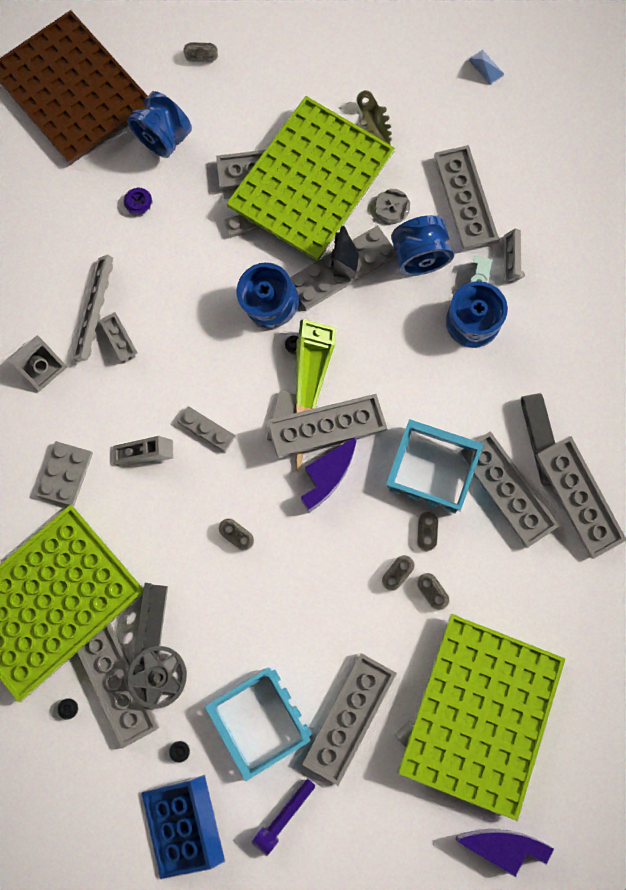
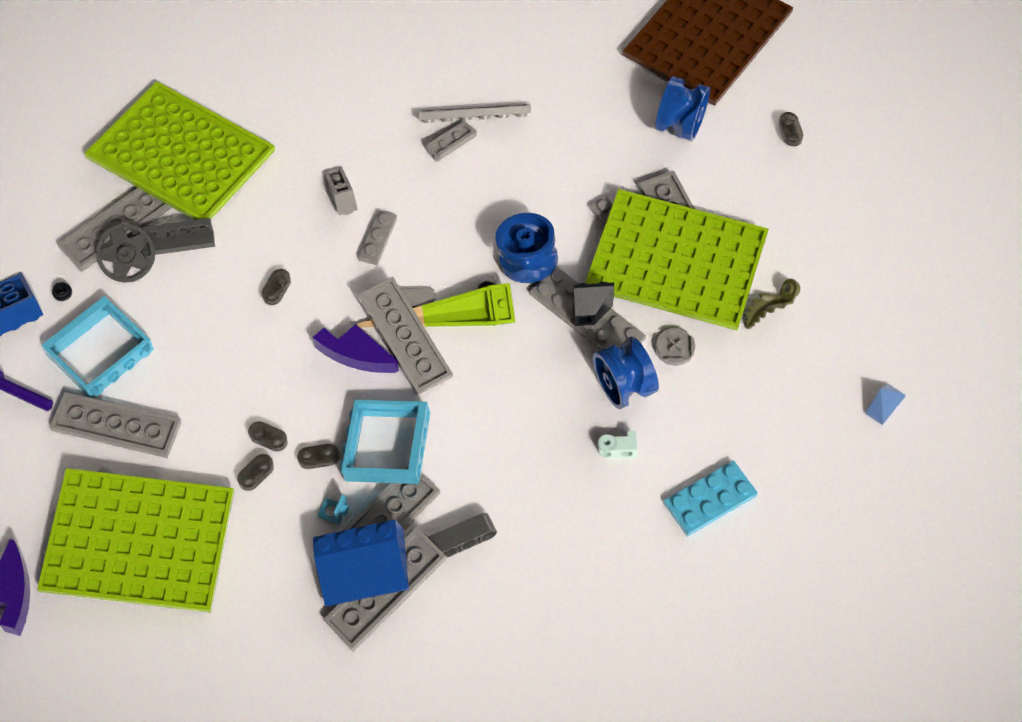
camera: 75 degrees right, 15 degrees down
(38, 363) = (406, 84): light grey slope -> none
(64, 473) = (304, 135): light grey plate -> none
(73, 705) = (89, 199): black plate -> none
(137, 194) = (597, 114): dark purple gear -> none
(466, 197) = (708, 413): light grey plate -> none
(476, 314) = (565, 445): blue piece -> none
(491, 522) = (340, 511): none -> medium azure bracket
(512, 256) = (631, 477): light grey hinge -> none
(542, 219) = (710, 498): none -> medium azure plate
(559, 510) = (361, 562): none -> blue slope

